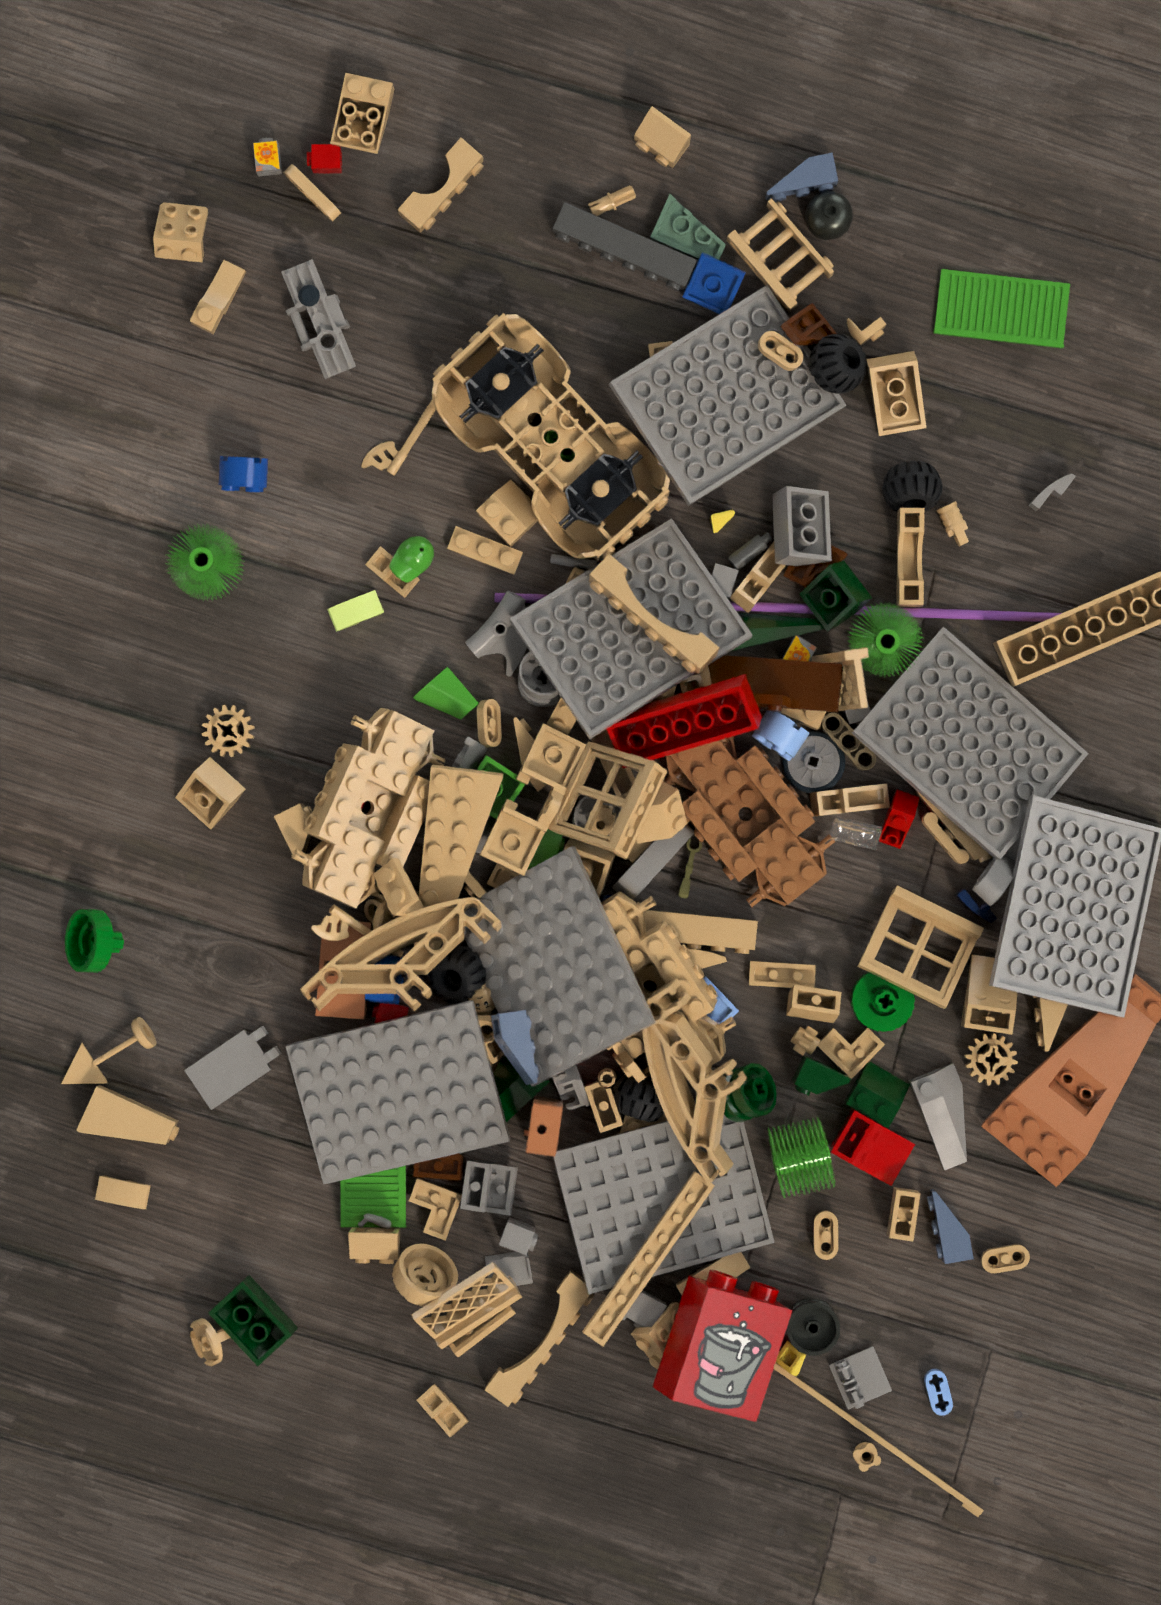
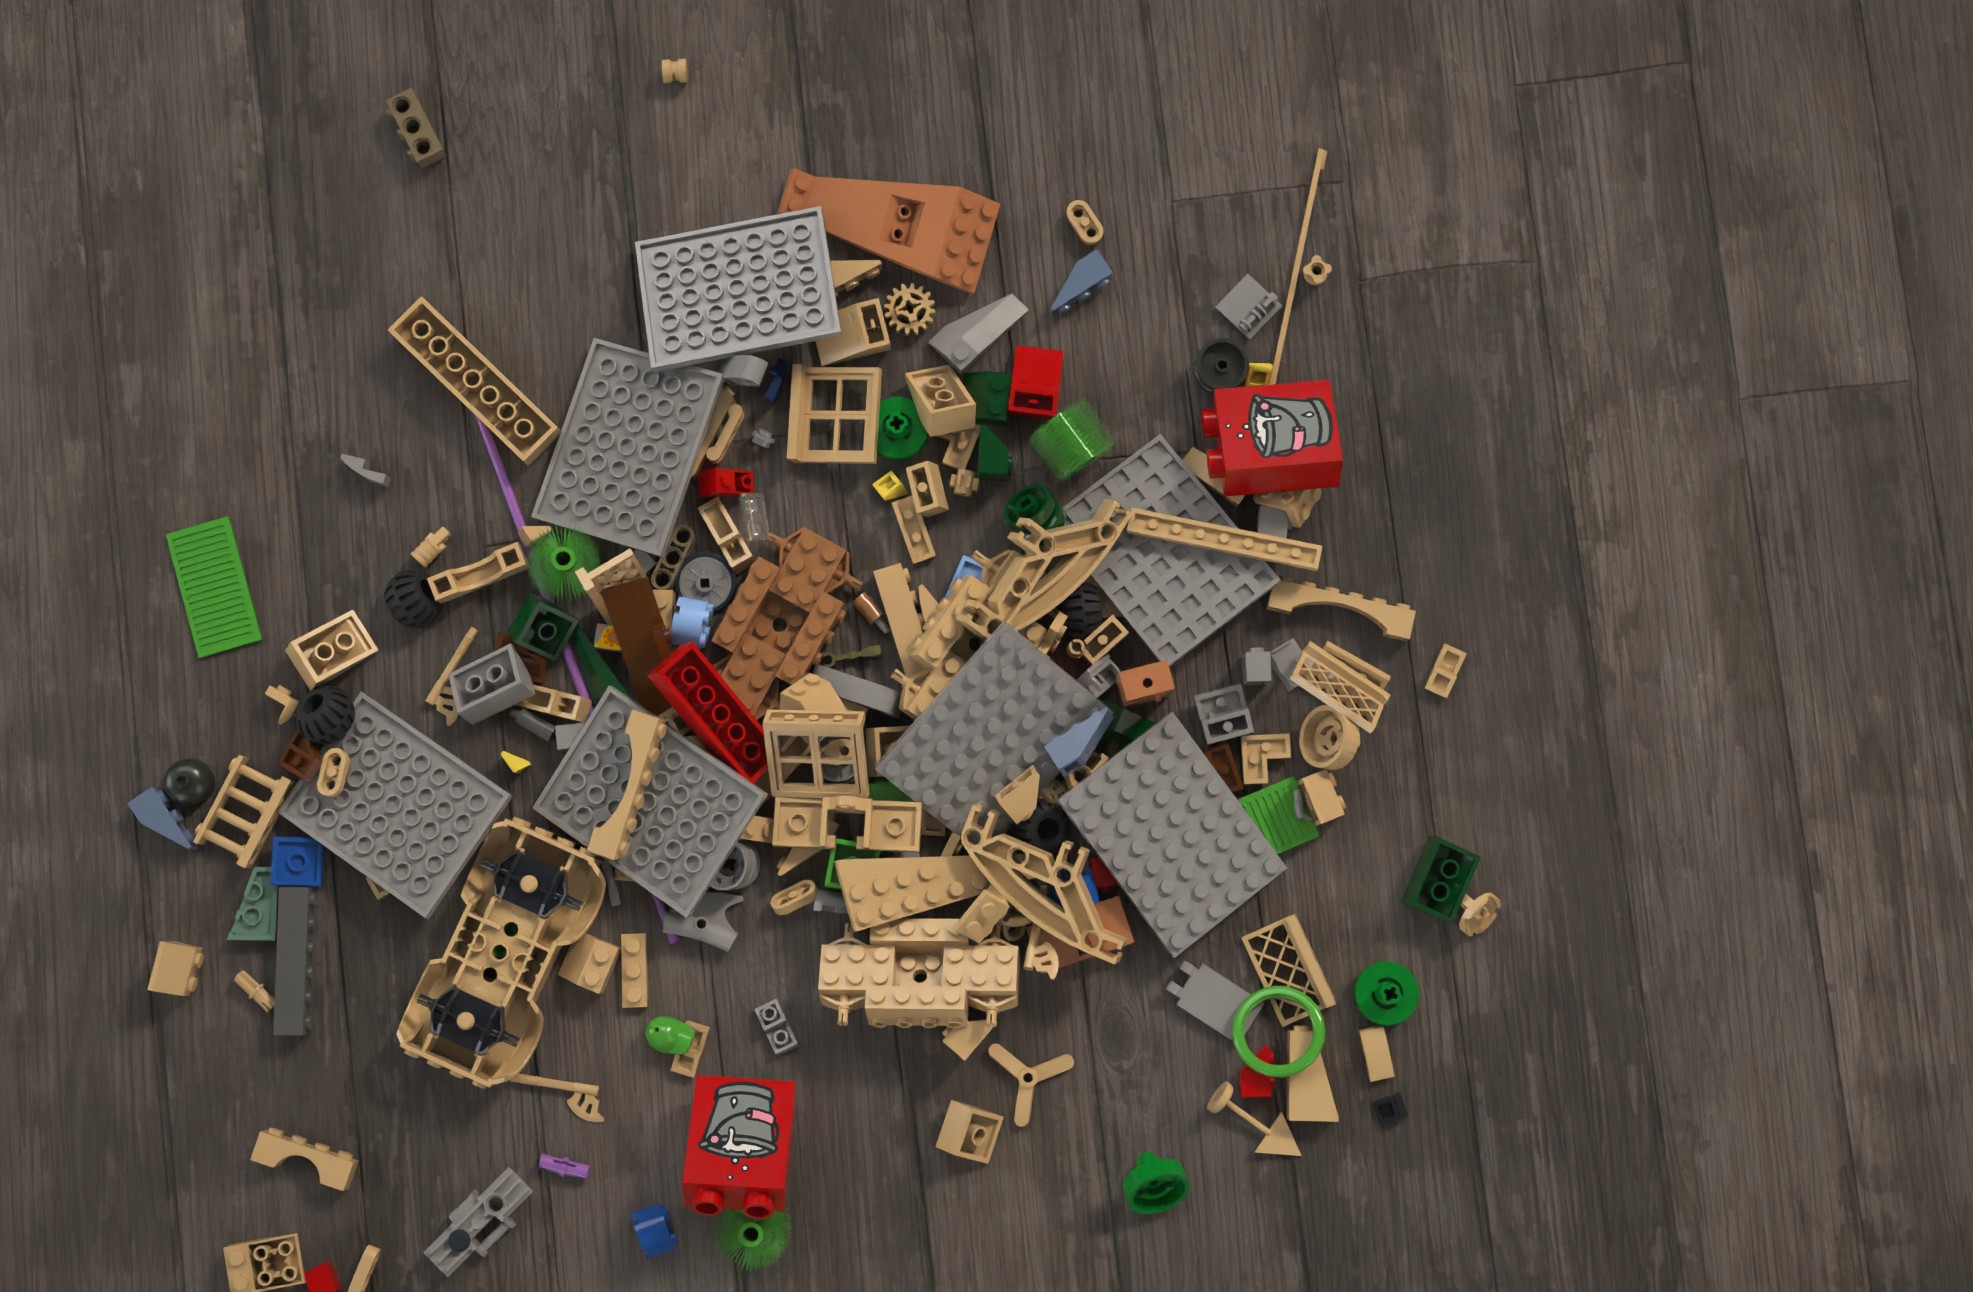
camera: 115 degrees left, 5 degrees down
(68, 1183) = (1390, 1108): none -> black slope
(142, 1101) = (1266, 1068): none -> bright green wedge
(151, 1074) = (1254, 1083): none -> red slope
(155, 1223) = (1403, 991): none -> green piece
(221, 740) = (892, 1137): tan gear -> none
(226, 860) = (1026, 1089): none -> tan piece
(231, 1167) = (1307, 959): none -> tan fence
(284, 582) = (739, 1145): none -> red brick
(335, 415) = (564, 1167): none -> medium lavender pin
(355, 610) = (737, 1063): yellowish green slope -> none
(378, 658) = (776, 1027): none -> light grey slope
(447, 695) = (784, 947): bright green slope -> none
(491, 969) = (1020, 795): none -> tan slope
(721, 903) = (870, 611): none -> medium nougat piece
(814, 470) = (440, 686): none -> tan piece
(825, 1234) = (1132, 390): tan plate -> none
(831, 969) = (889, 487): none -> light yellow slope
(891, 1052) = (941, 400): none -> tan slope
(903, 1214) = (1084, 328): tan brick -> none
(925, 620) = (528, 533): none -> tan slope
(926, 871) = (763, 438): none -> light grey plate
(944, 1391) = (1227, 227): light blue beam -> none

